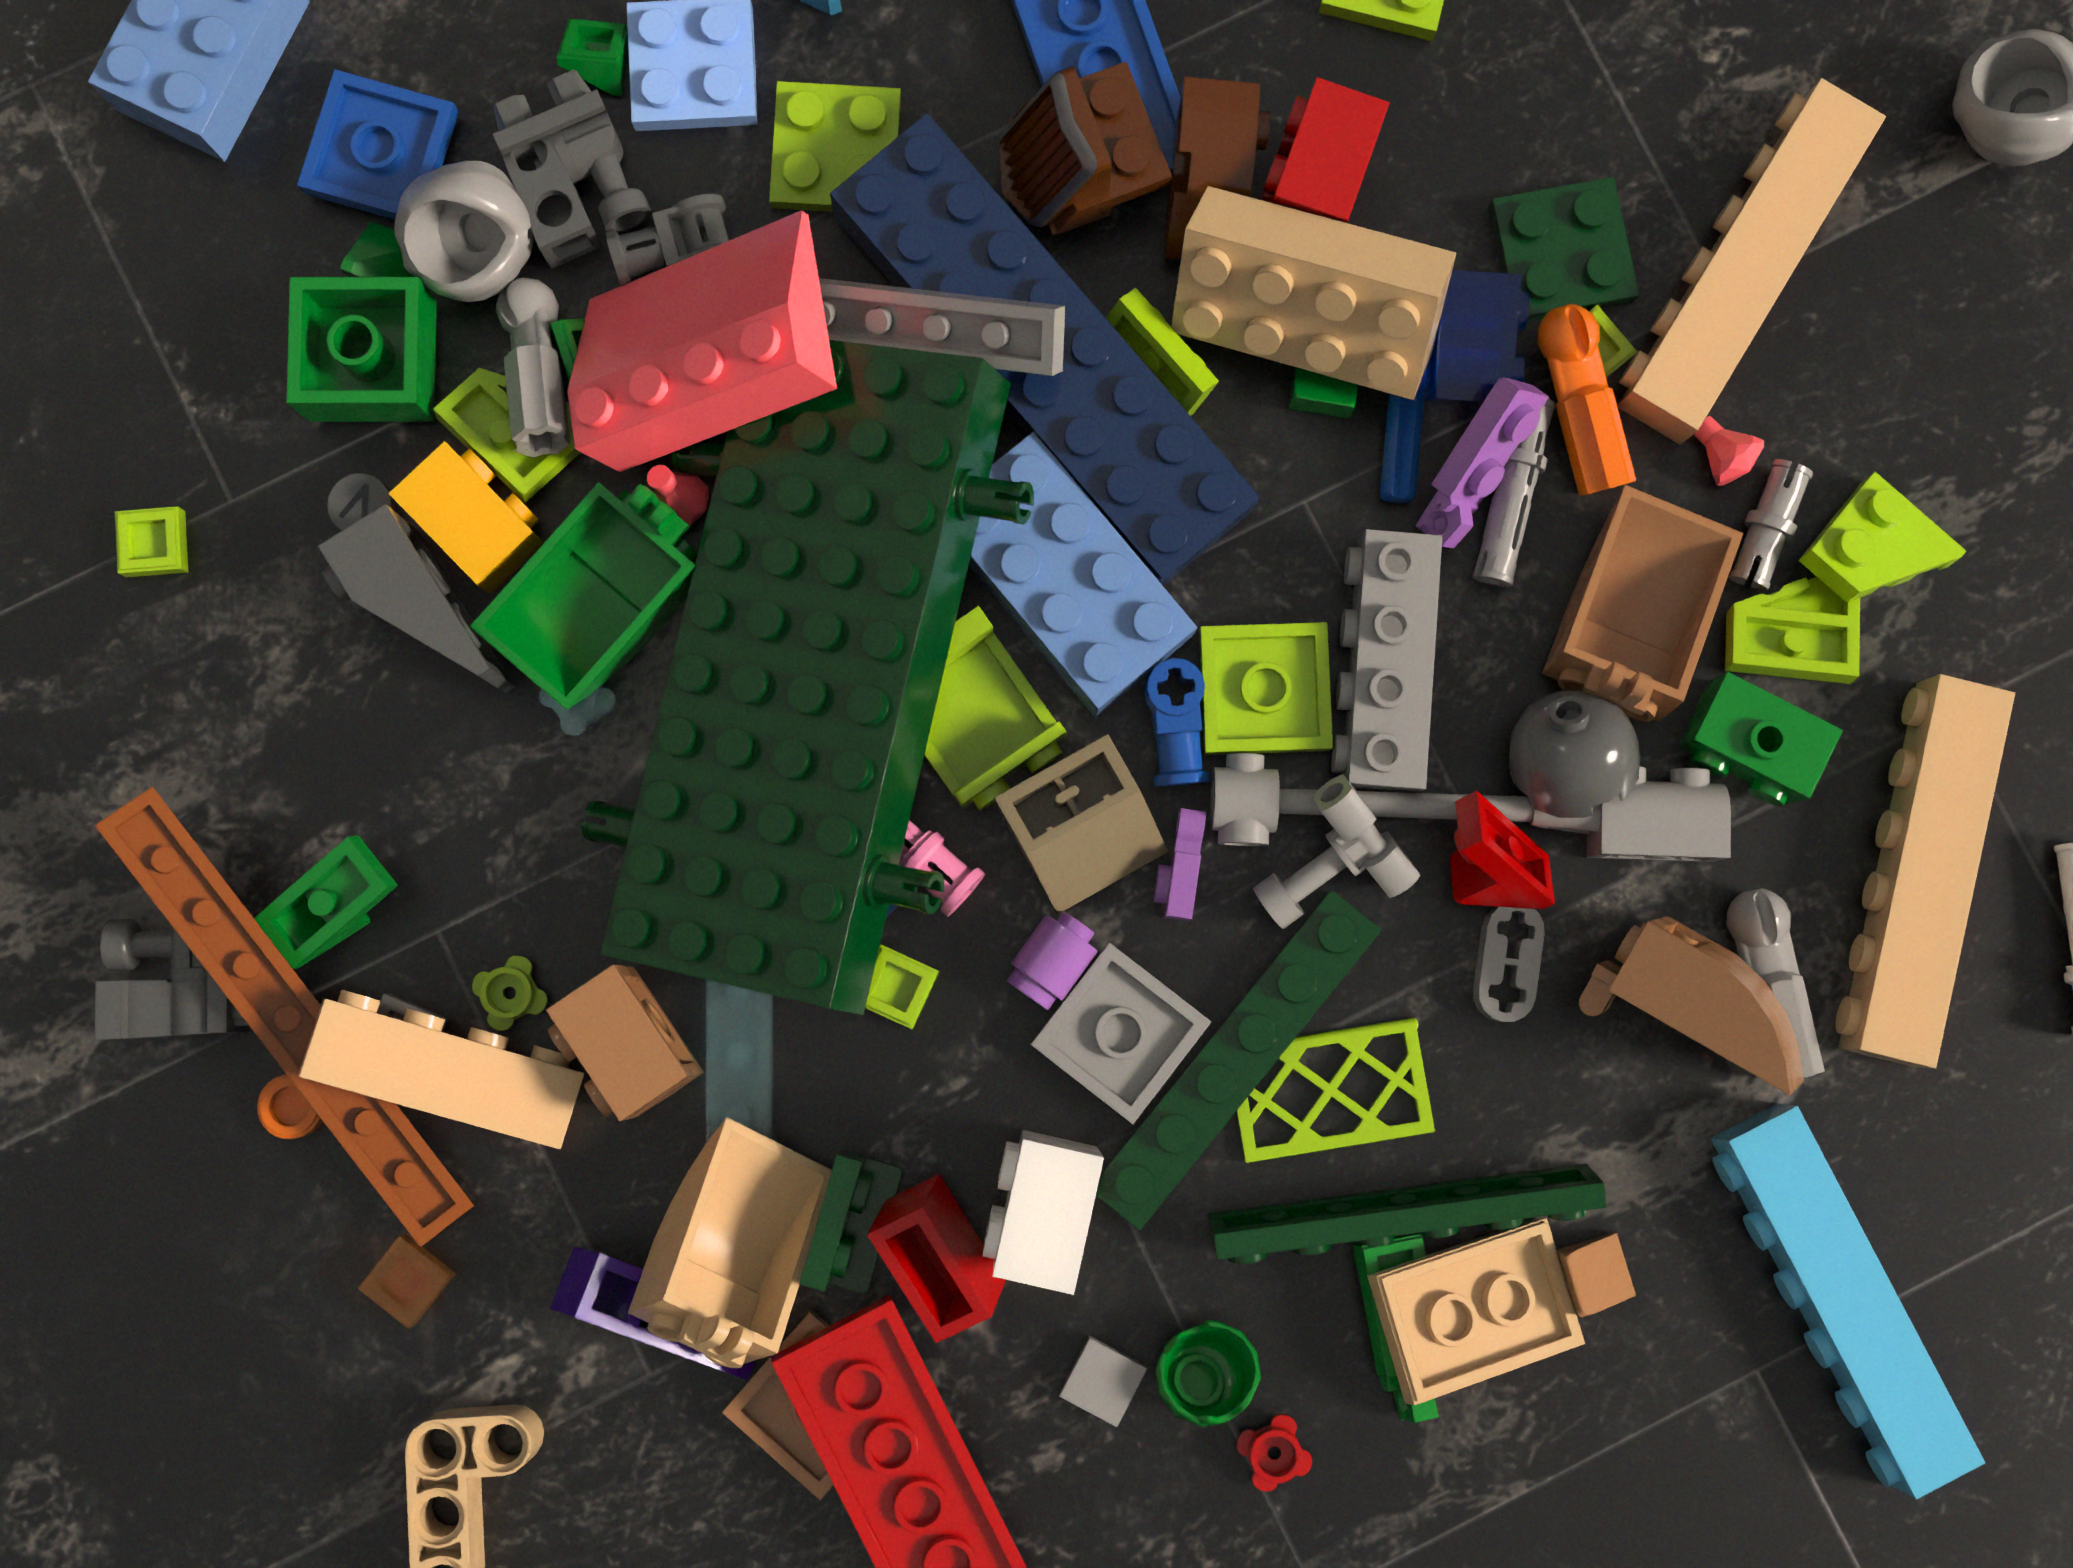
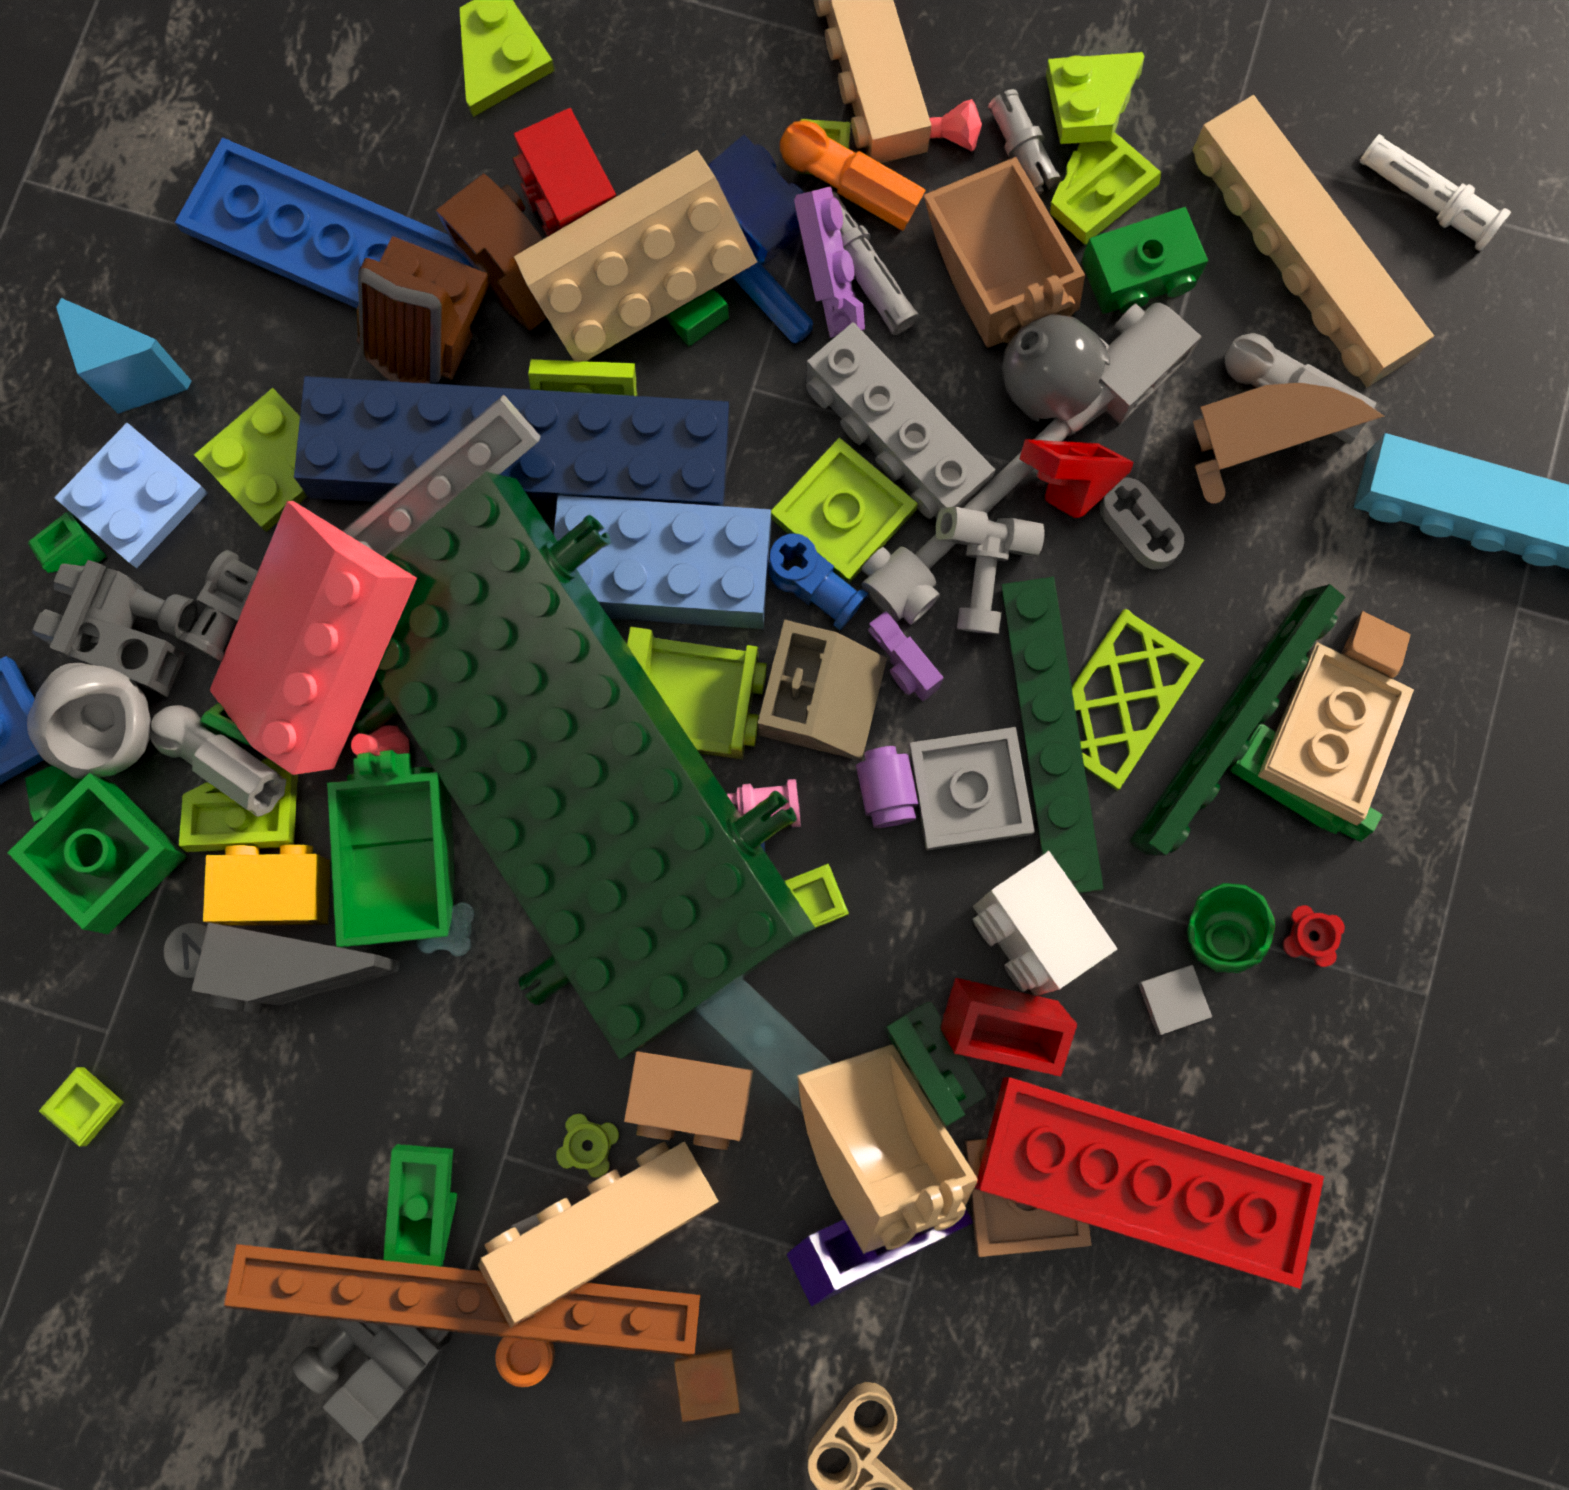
camera: 40 degrees left, 5 degrees down
(1566, 246) = (748, 99): dark green plate -> none

